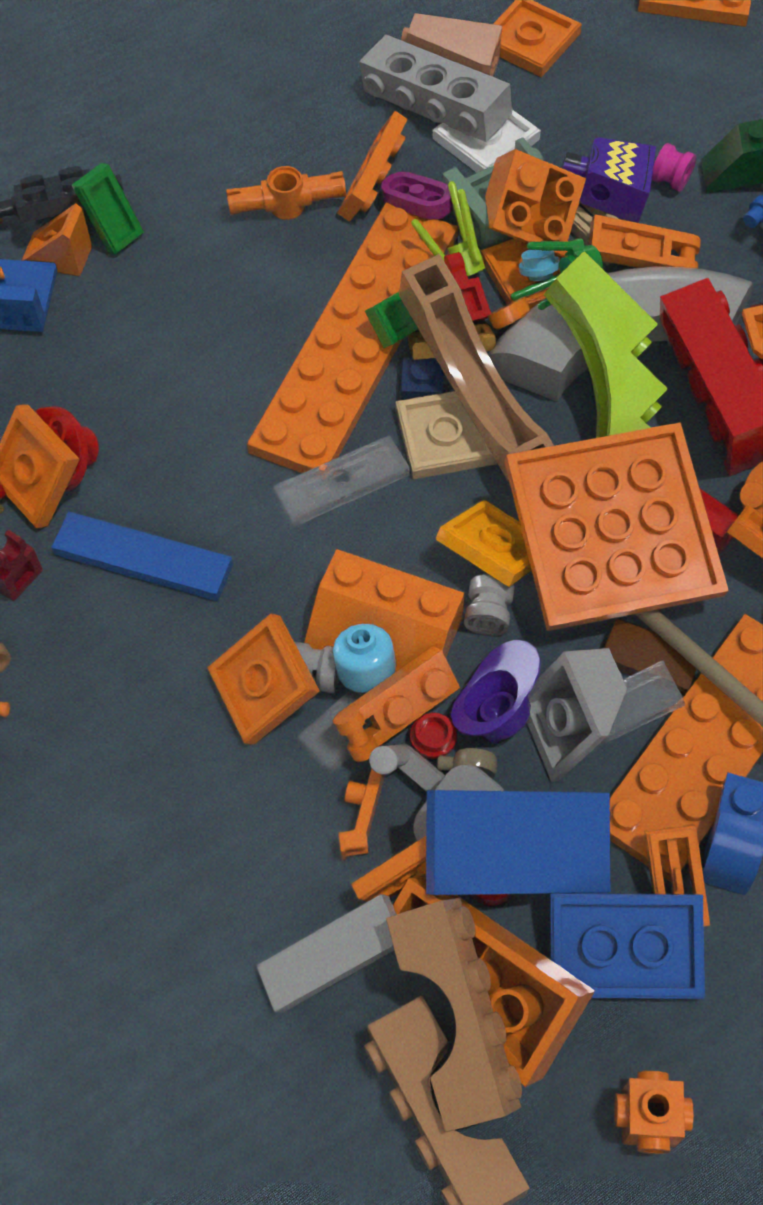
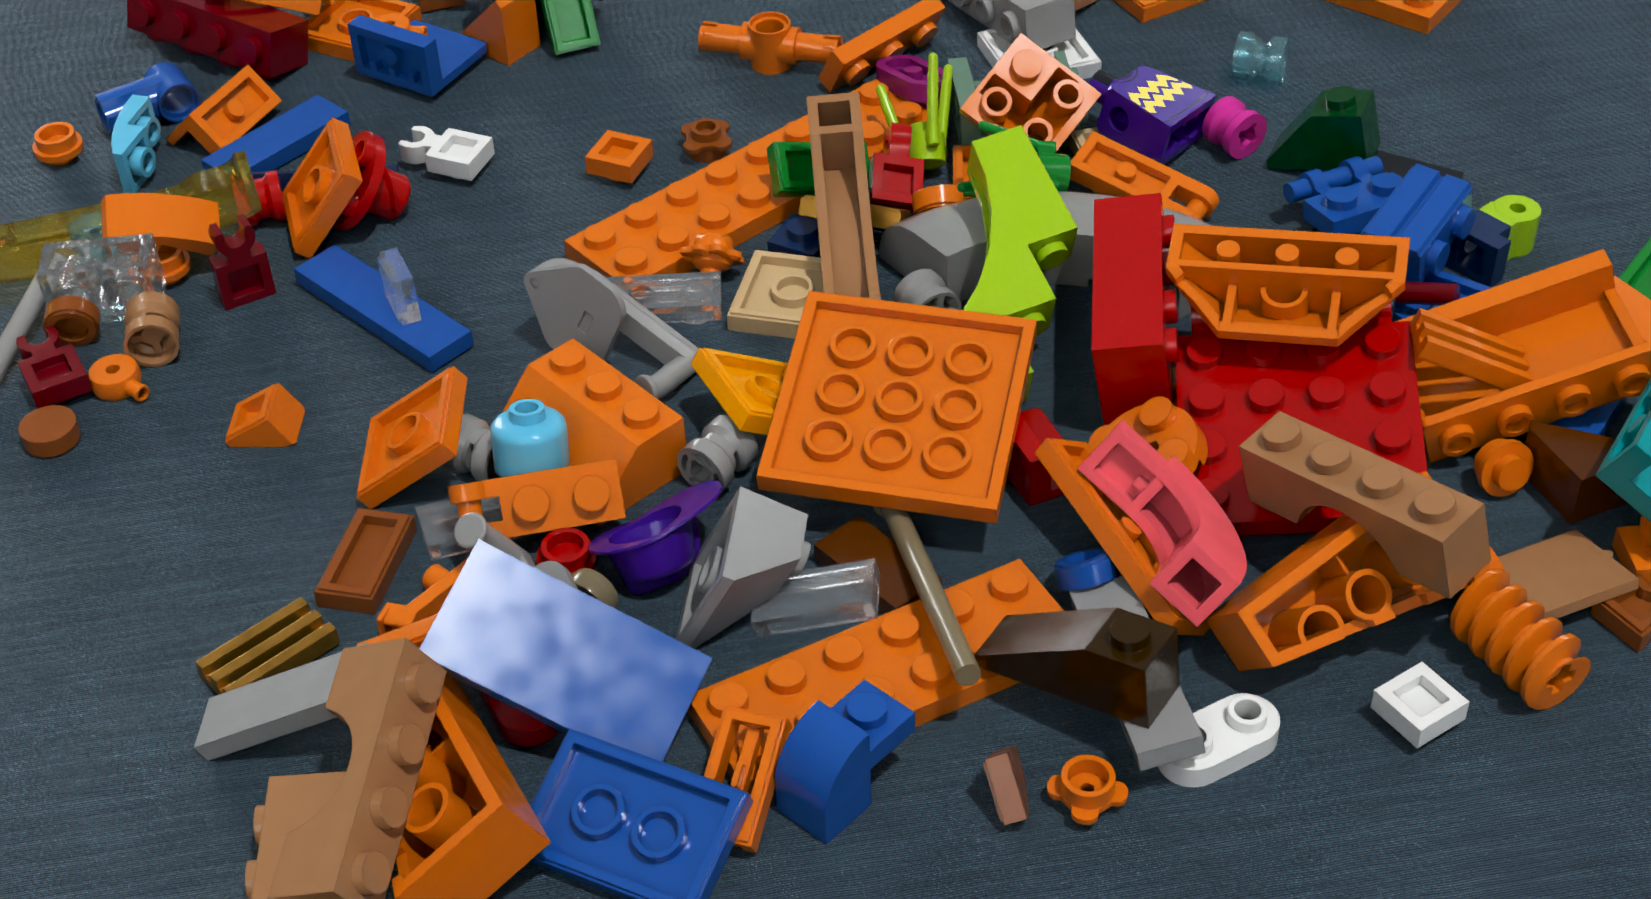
camera: 25 degrees right, 20 degrees down
(102, 386) = (452, 154): none -> white plate
(122, 697) = (266, 419): none -> orange slope
(162, 543) = (399, 286): none -> clear tile
(237, 345) = (619, 156): none -> orange plate
(284, 868) = (263, 647): none -> pearl gold tile
(286, 795) = (365, 561): none -> dark orange tile
(292, 312) = (706, 139): none -> dark orange plate
(328, 517) = (586, 306): none -> light grey piece
(371, 420) = (712, 253): none -> orange plant
(553, 409) = (926, 289): none -> light grey wheel
(653, 92) = (1256, 57): none -> clear light blue wheel

